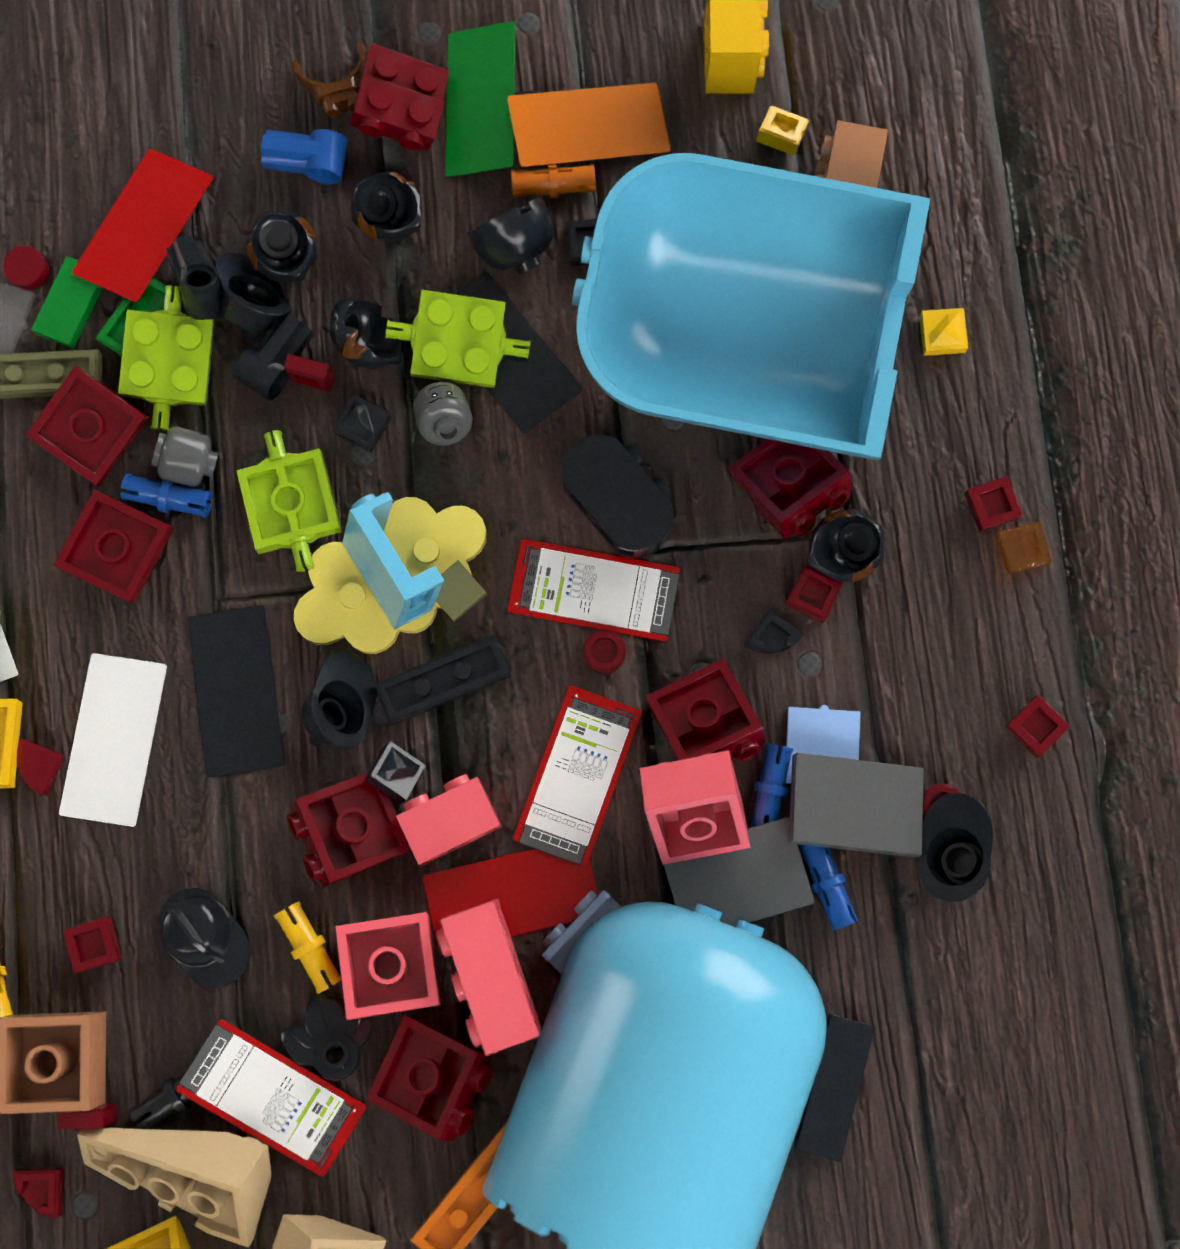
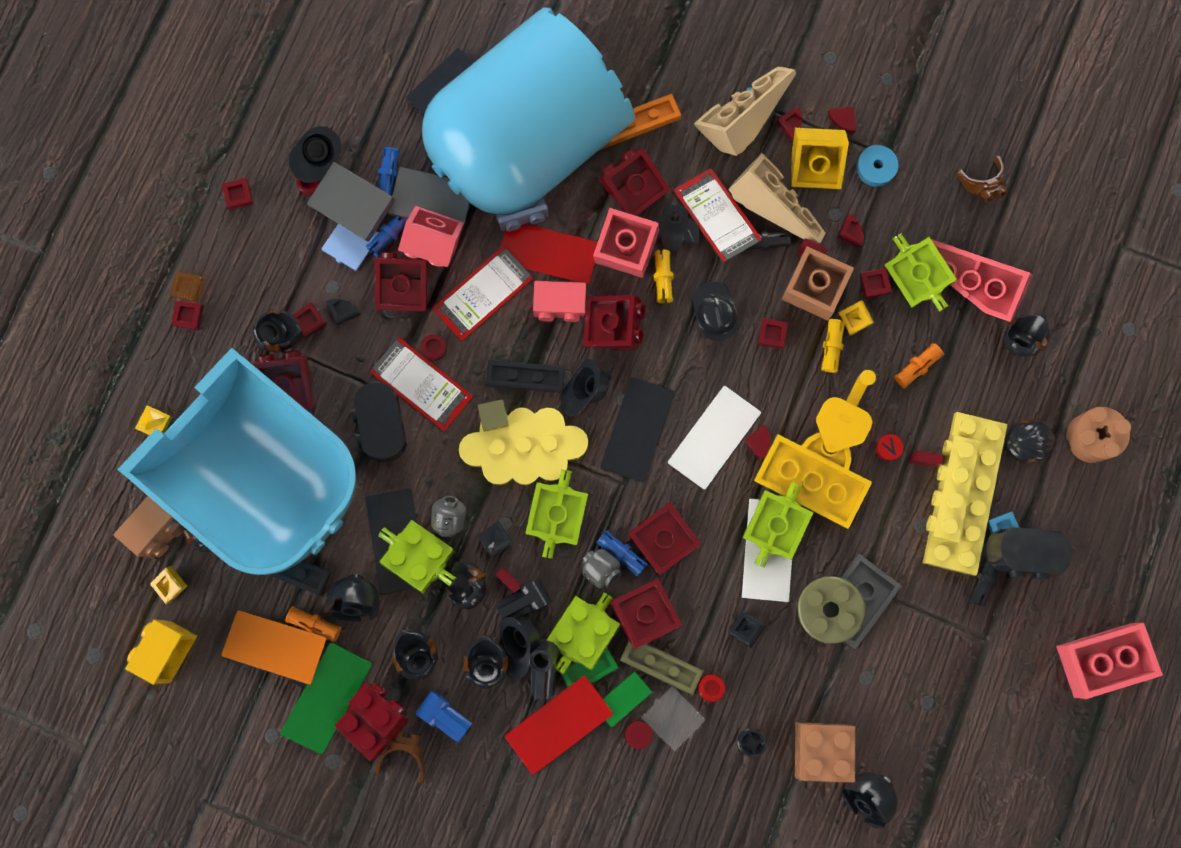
camera: 155 degrees left, 0 degrees up
(395, 772) = (574, 338): black tile -> none
(398, 593) = (523, 440): medium azure panel -> none
(489, 977) = (578, 211): coral brick -> none

